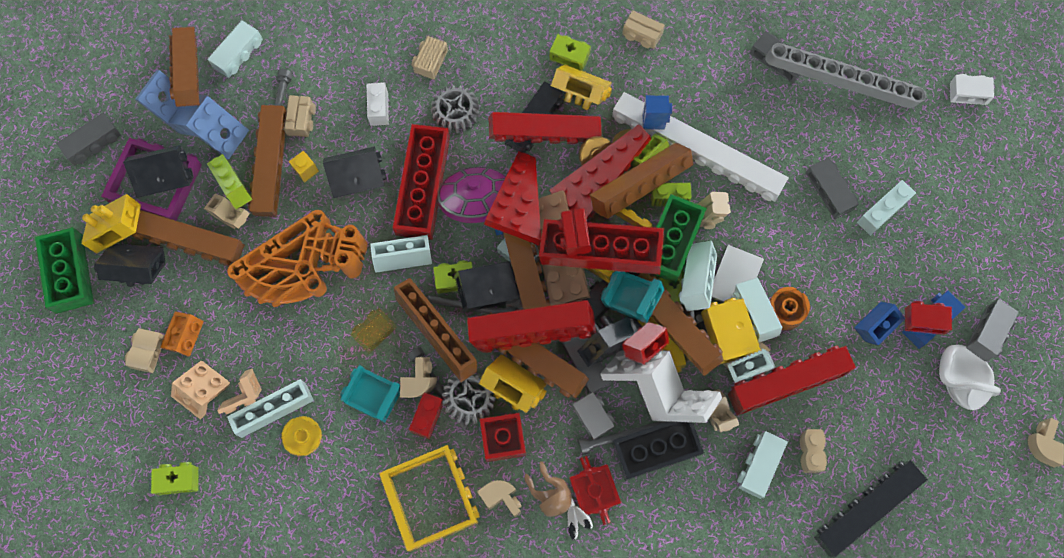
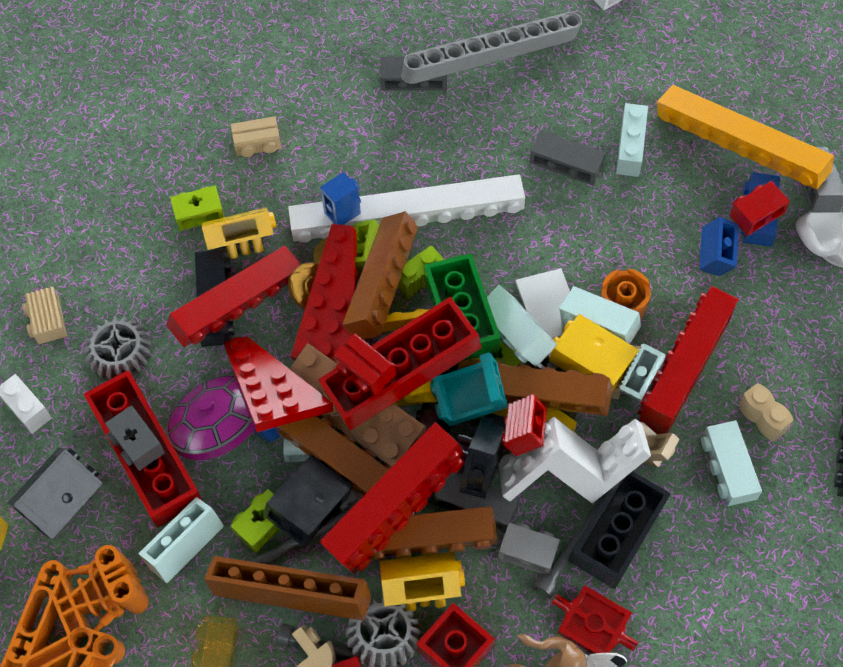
camera: 40 degrees left, 10 degrees down
(420, 164) = (129, 426): none -> dark grey brick
(717, 209) = (480, 246): tan brick -> none
(964, 264) = (745, 137): none -> light orange brick

